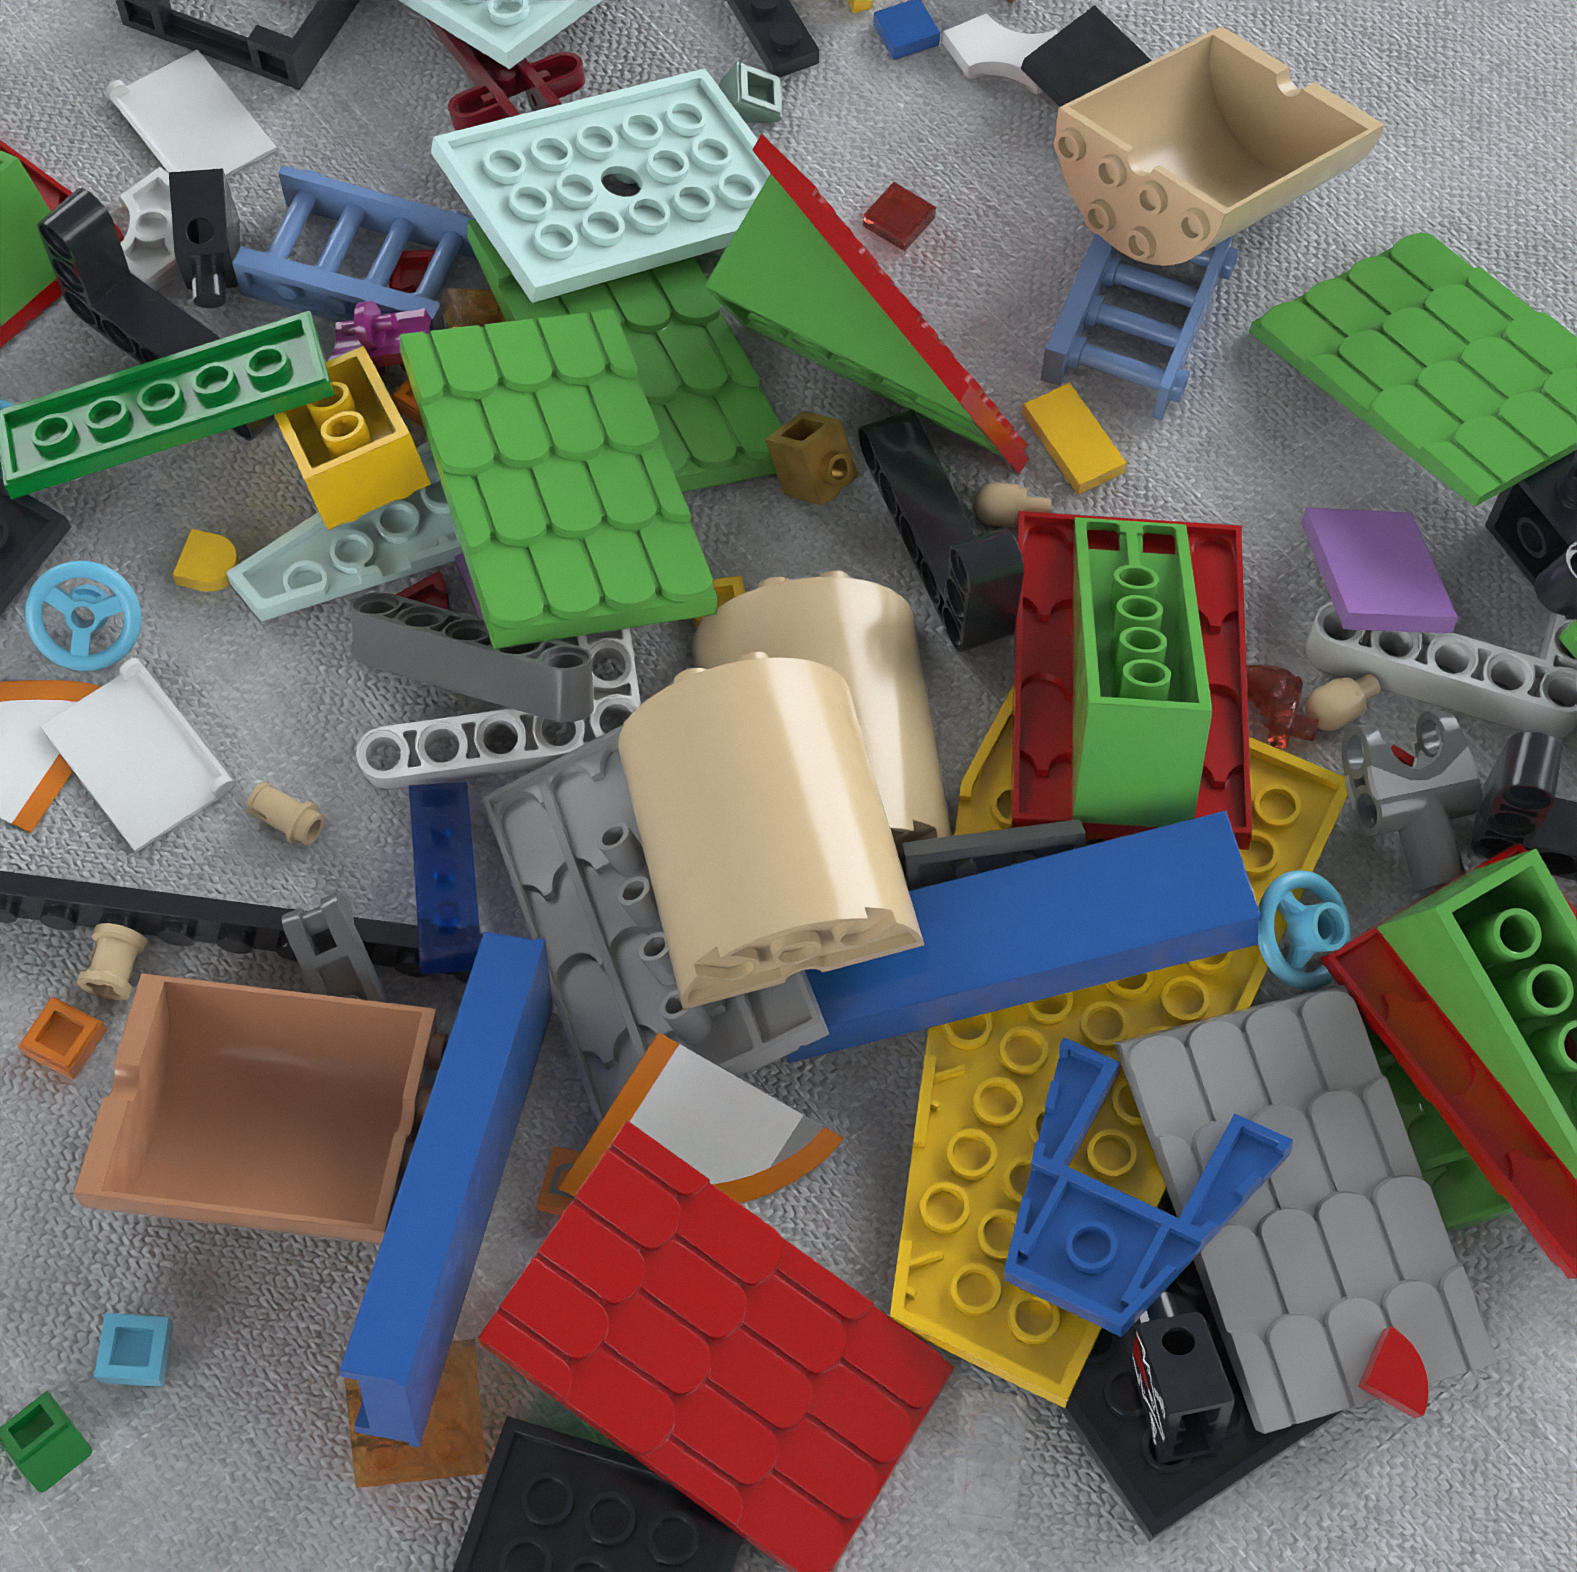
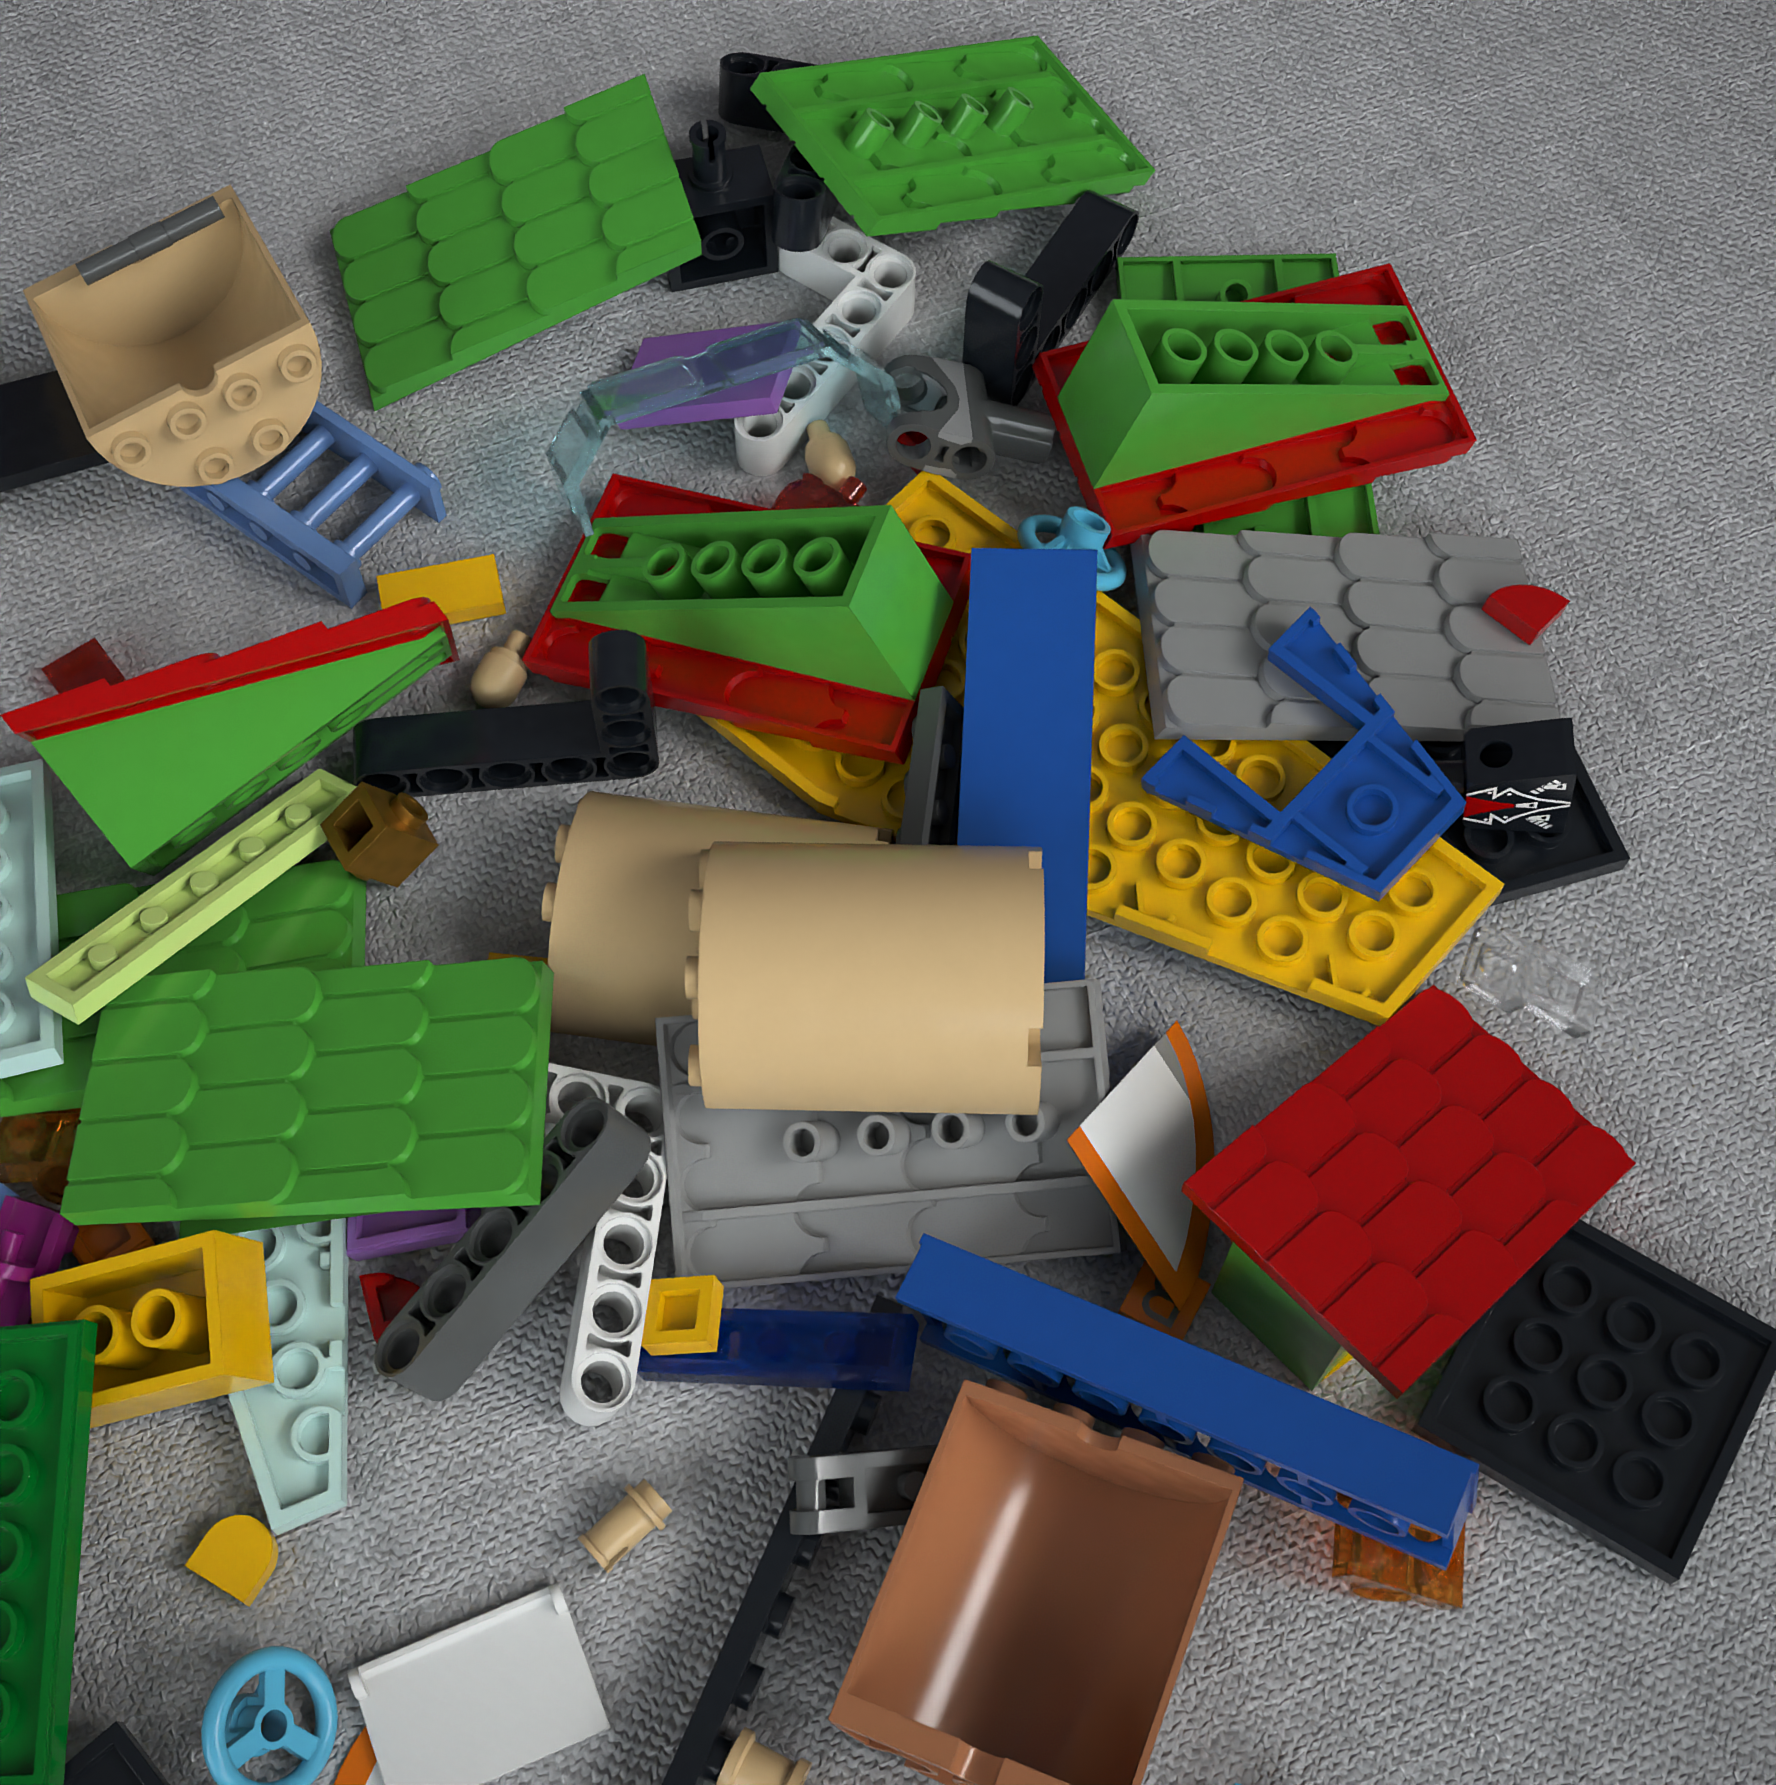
camera: 75 degrees left, 0 degrees up
(455, 799) = (683, 1315): none -> yellow tile
(705, 342) = (187, 900): none -> yellowish green plate
(1296, 89) = (150, 240): none -> dark grey piece
(1414, 618) = (685, 379): none -> clear light blue windscreen

